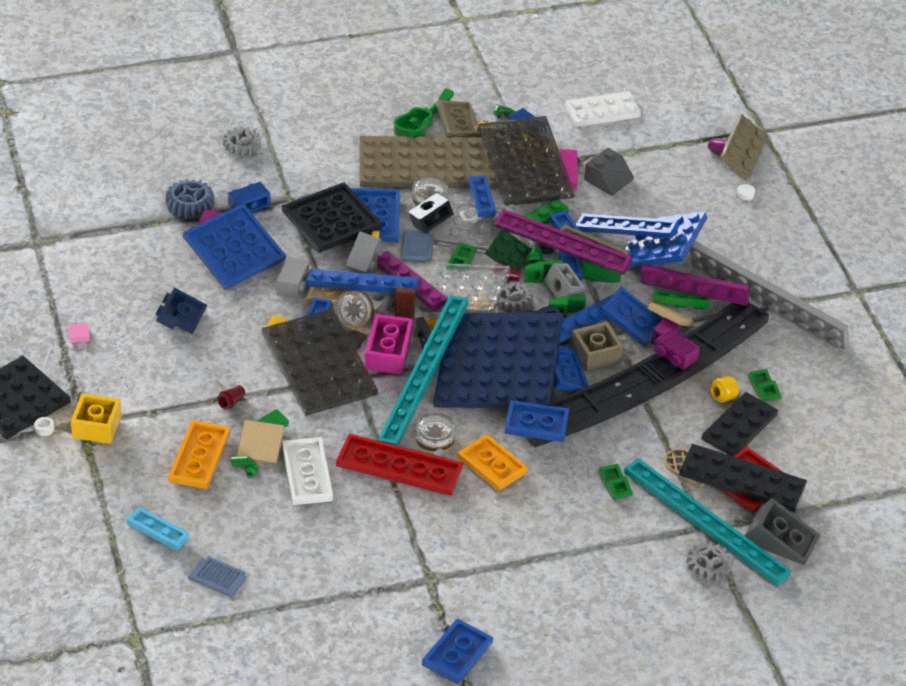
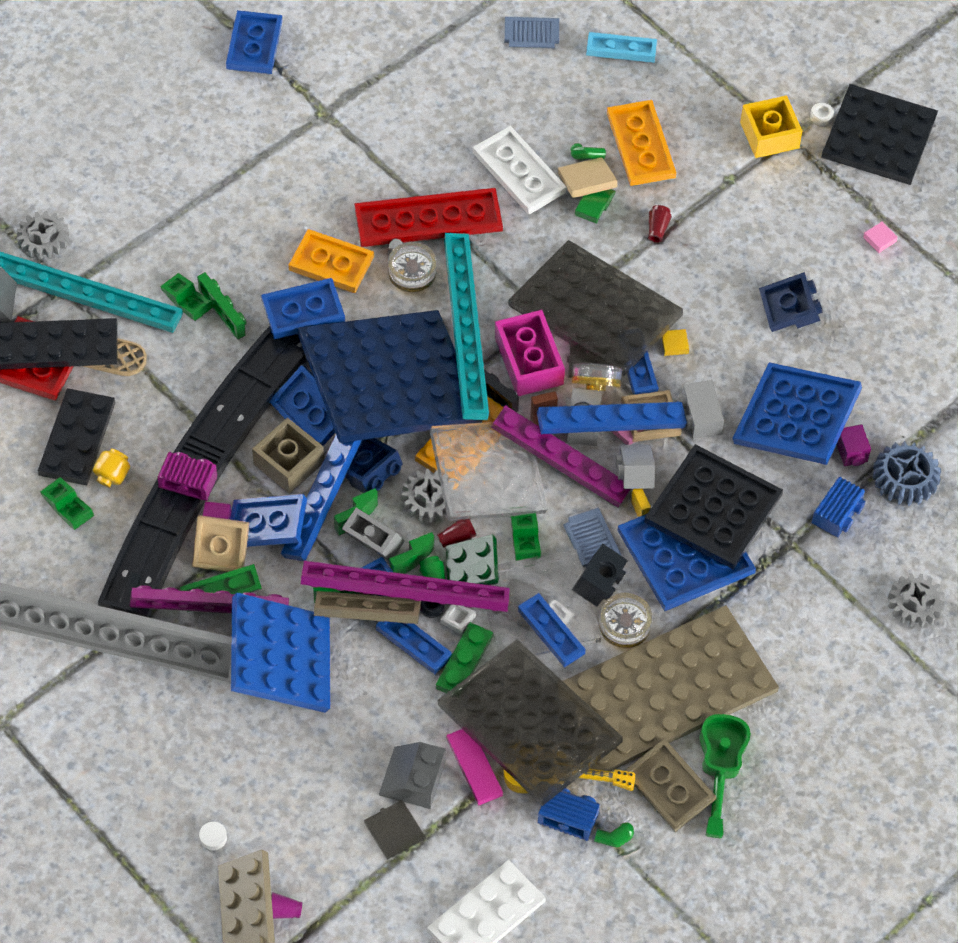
camera: 155 degrees right, 15 degrees up
(592, 461) = (222, 305): none -> green plate
(628, 225) = (335, 650): plate -> none
(636, 160) = (394, 829): none -> clear smoke piece

